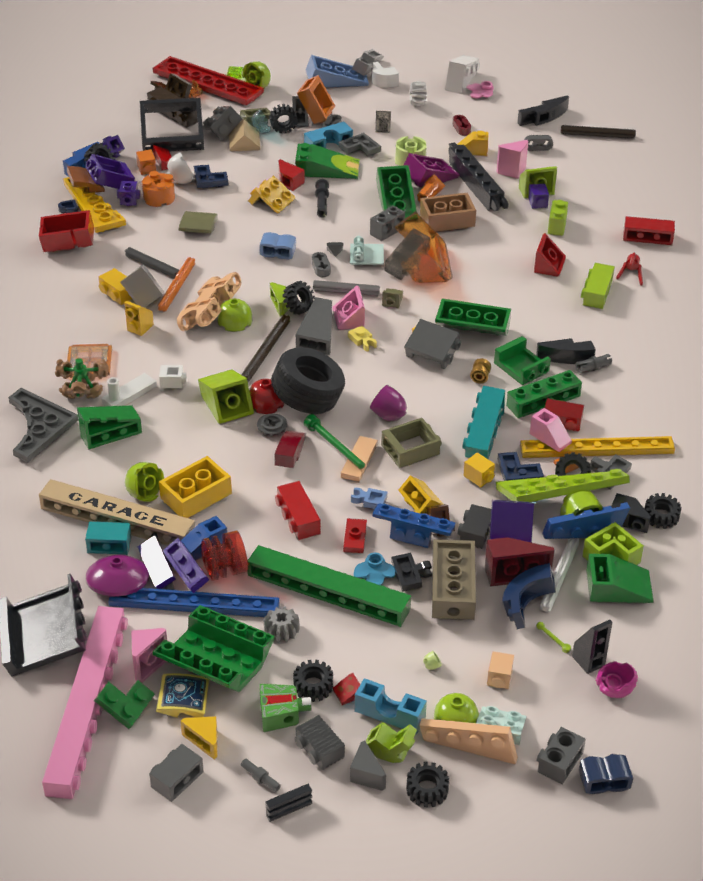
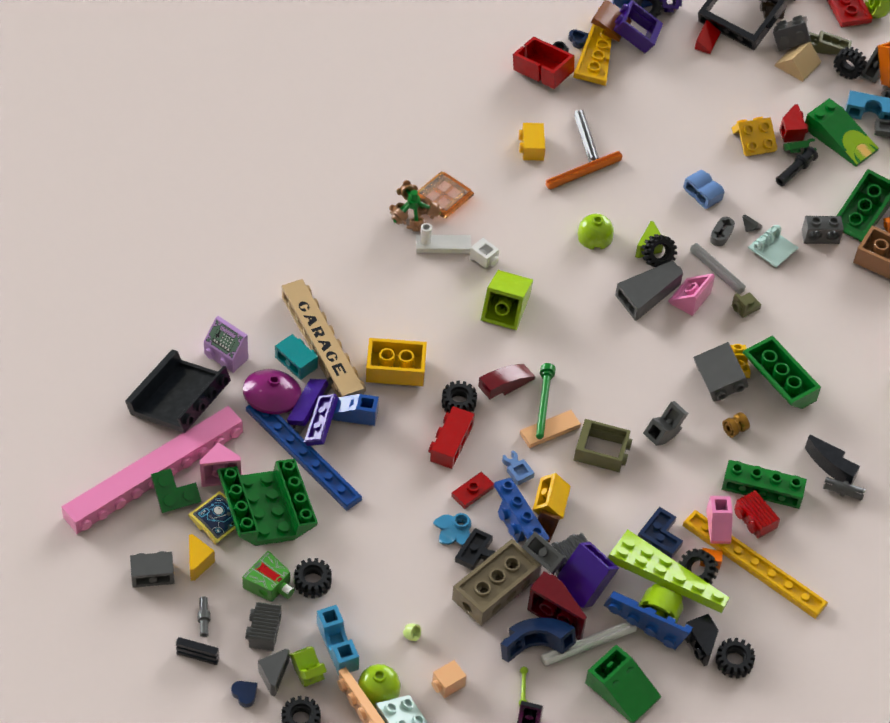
camera: 40 degrees right, 10 degrees up
(41, 564) = (226, 344): none -> lavender slope
(44, 423) = (354, 228): dark grey plate -> none
(107, 424) = (392, 261): green wedge -> none
(128, 193) = (635, 56): dark purple brick -> none
(138, 318) = (514, 182): yellow slope -> none
(142, 286) = (548, 155): light grey slope -> none
(143, 481) = (365, 326): lime cylinder -> none
(146, 161) = (685, 33): orange brick -> none
(158, 189) = (664, 67): orange brick -> none
(180, 170) = (702, 60): white cylinder -> none
(198, 222) = (664, 121): olive slope -> none
(206, 179) = (719, 82): dark blue plate -> none
(208, 303) = (598, 200): light nougat piece -> none
(229, 554) = (353, 433): clear red wheel -> none
(260, 122) = (827, 53): clear light blue hair -> none
(264, 397) = (538, 322): red cylinder -> none
(266, 347) = (588, 278): dark brown axle -> none
(266, 475) = (459, 390): none -> black tyre
(275, 420) = (511, 345): dark grey gear -> none
(282, 624) = (338, 518): light grey gear -> none
(308, 186) = (796, 147): none -> green plate
(308, 380) = (588, 318): black tyre -> none
(329, 585) = (406, 516): green brick -> none
(346, 689) = (329, 600): red slope -> none
(361, 803) = (244, 692): none -> dark blue tile
(363, 337) = (677, 323): light yellow plate -> none
(389, 404) = (621, 399): magenta piece -> none
(409, 246) = (799, 272): clear smoke brick -> none
(424, 266) = (826, 290): clear orange windscreen -> none
(438, 398) = (667, 426): none -> dark grey brick
(470, 529) = (544, 552): none -> dark grey slope
(479, 470) = (625, 509): yellow brick -> none
(485, 422) = (678, 473): teal wedge -> none
(520, 362) = (782, 440): green panel -> none
(614, 541) = (652, 651): lime brick -> none
(616, 462) = (739, 592): dark grey hinge -> none

